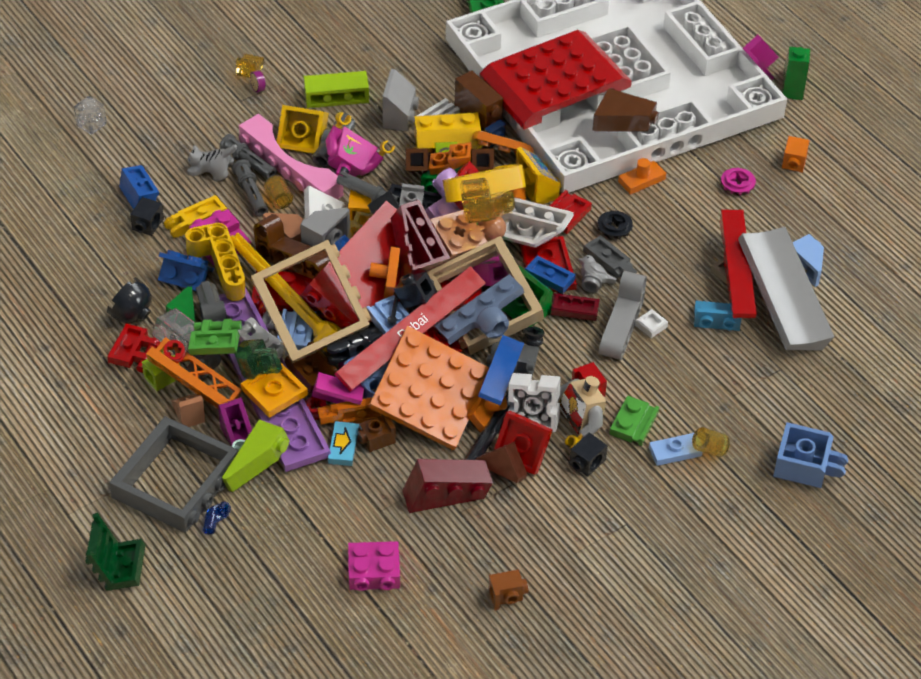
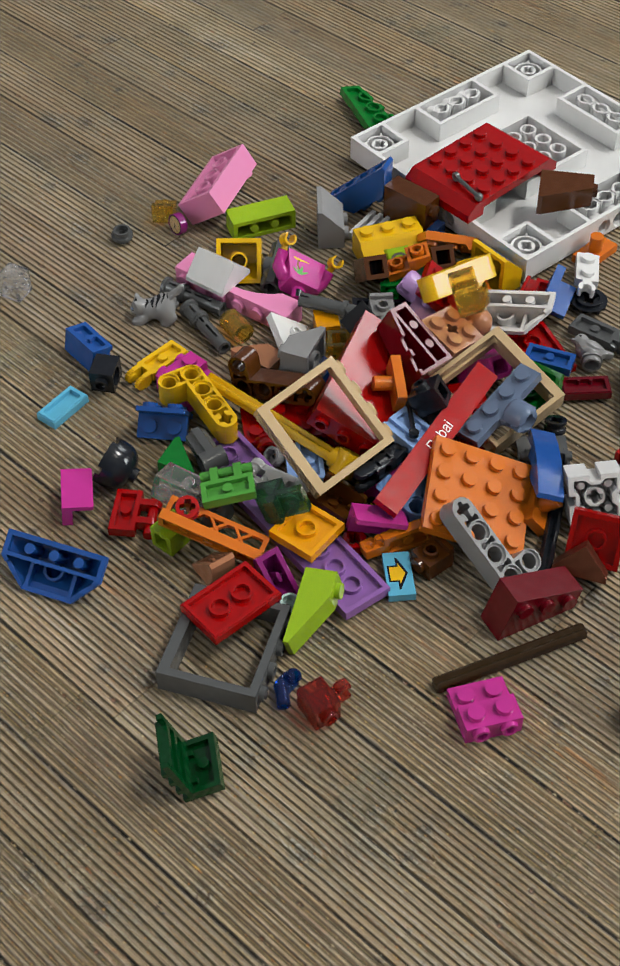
camera: 10 degrees left, 0 degrees up
(50, 380) = (52, 567): none -> blue wedge
(88, 320) = (76, 492): none -> dark pink panel
(101, 241) = (62, 407): none -> medium azure tile
(188, 437) = (230, 602): none -> red tile
(203, 83) = (122, 234): none -> dark grey plate
(239, 533) = (321, 702): none -> clear red brick
(272, 137) = (215, 272): none -> white slope
(304, 49) = (217, 184): none -> bright pink brick
(412, 528) = (509, 658): none -> dark brown axle
(420, 426) = (485, 541): none -> light grey beam
(441, 76) = (365, 188): none -> blue wedge
(536, 105) = (456, 177): none -> dark grey hinge
(585, 213) = (563, 291): none -> panel
(621, 197) = (586, 273): none -> white plate

